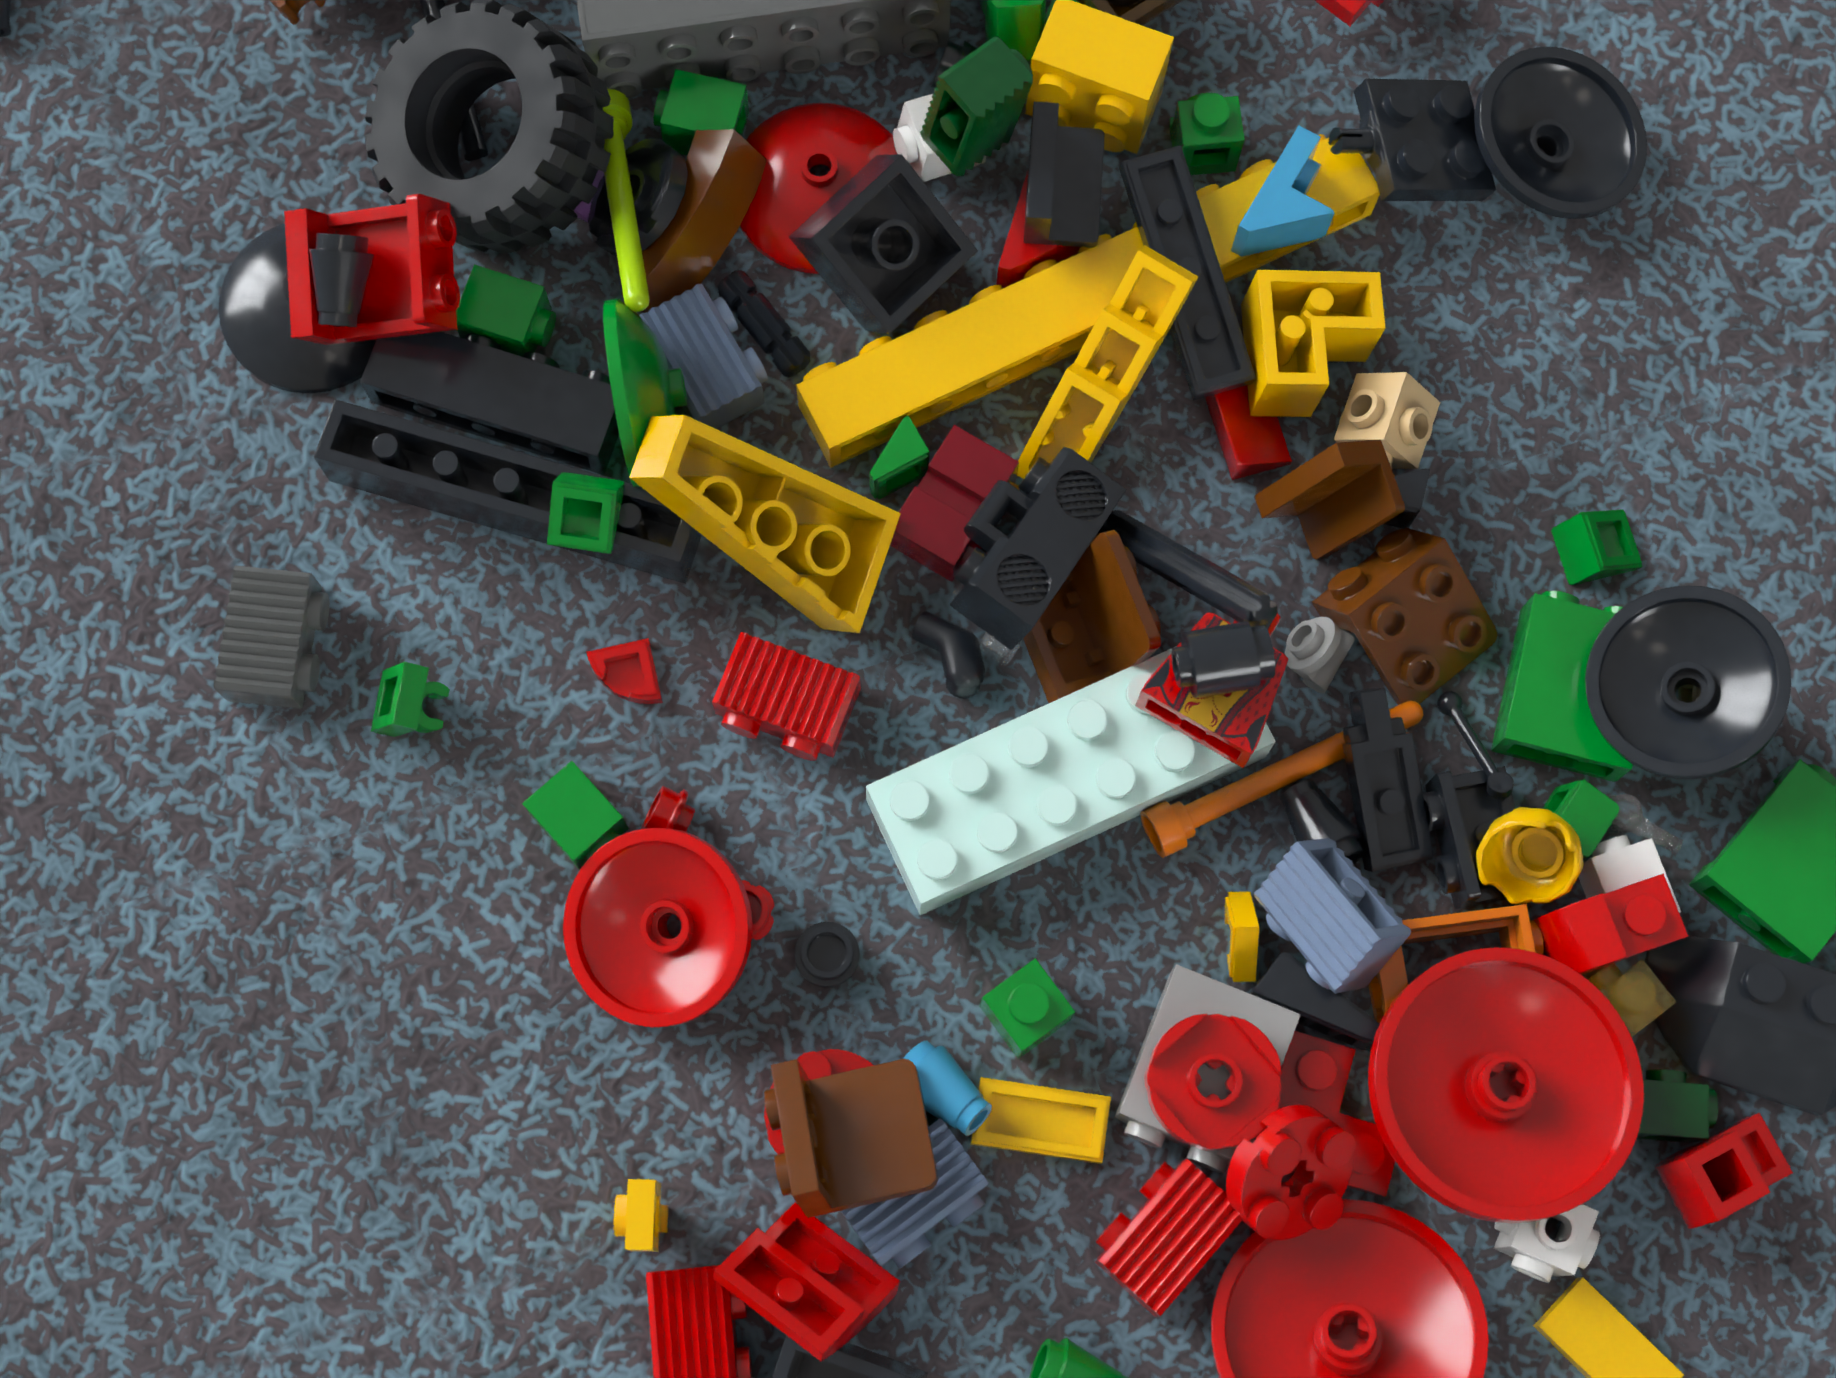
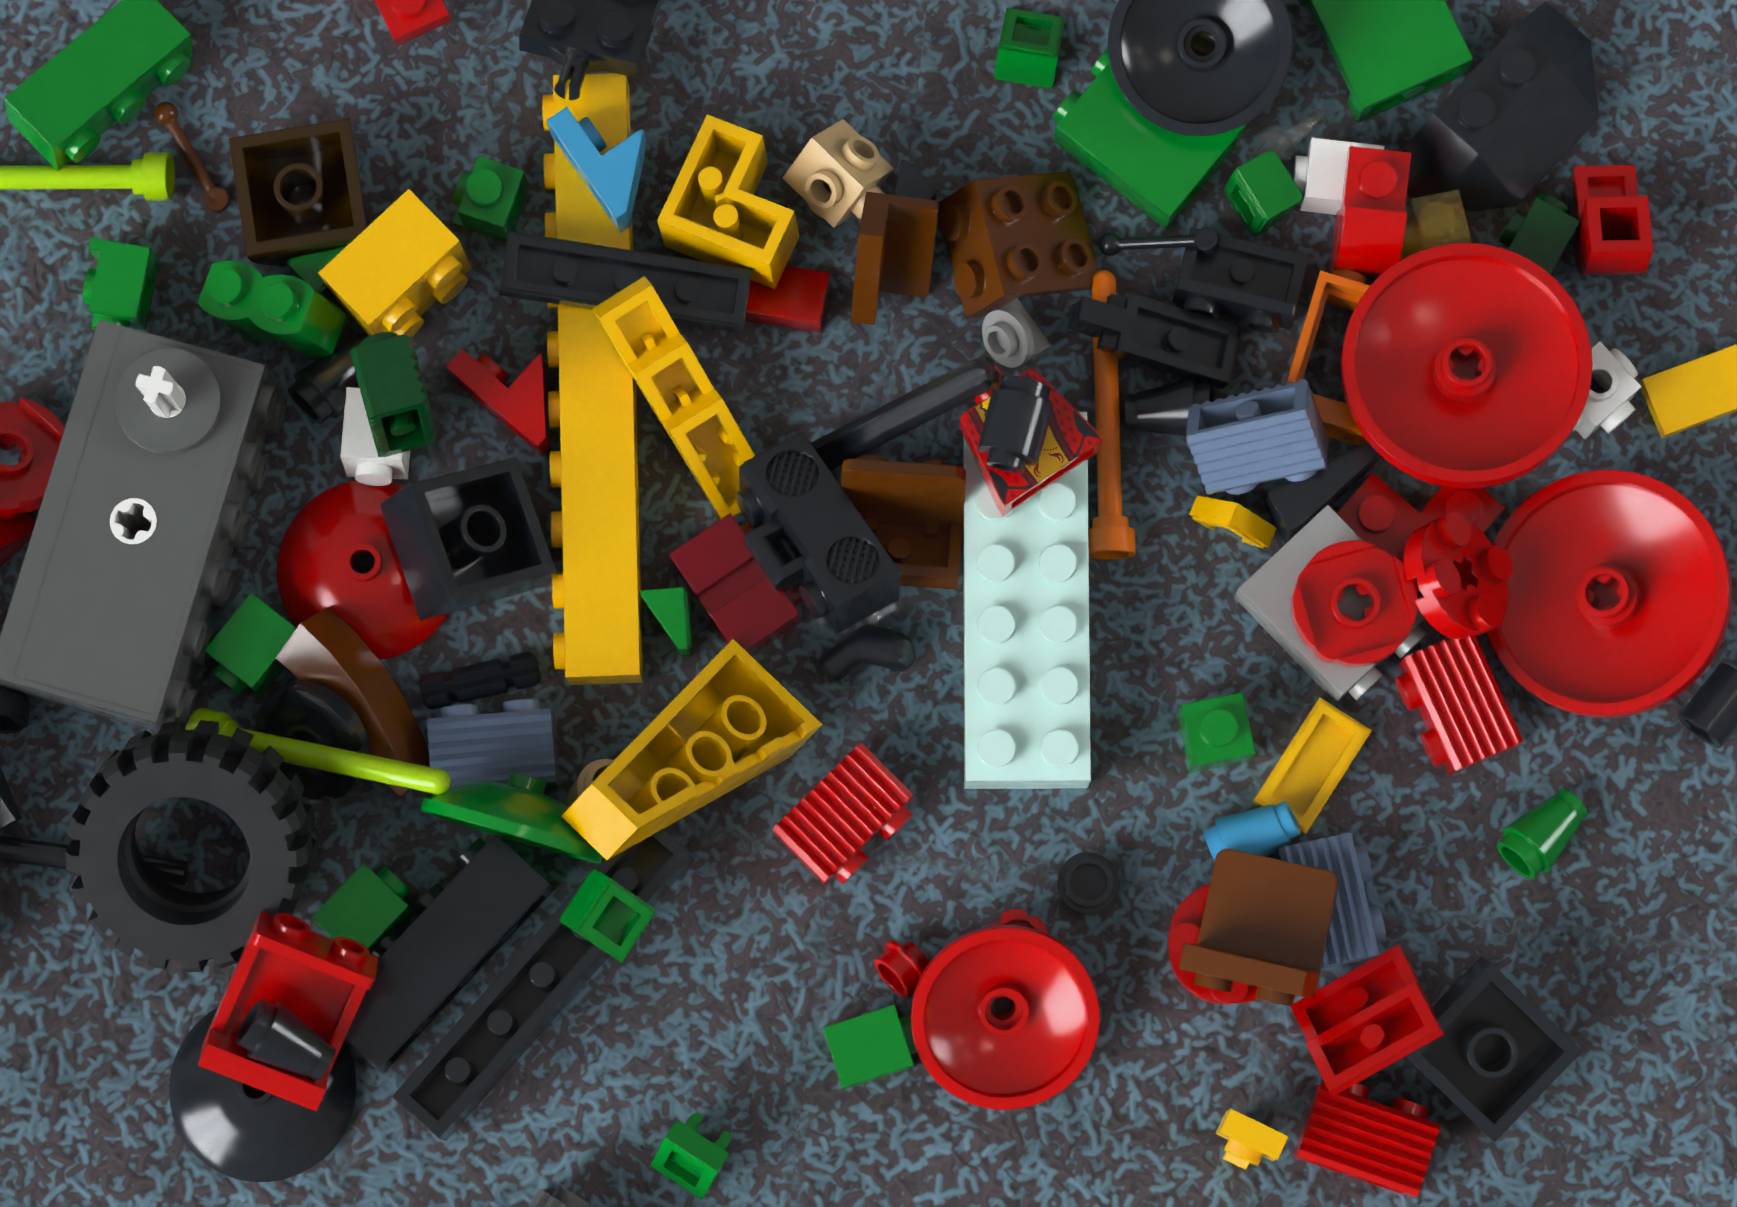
camera: 60 degrees left, 5 degrees up
(628, 671) = (752, 946): red tile -> none
(1063, 181) = (487, 350): black panel -> none
(1530, 856) = (1282, 247): yellow hair -> none

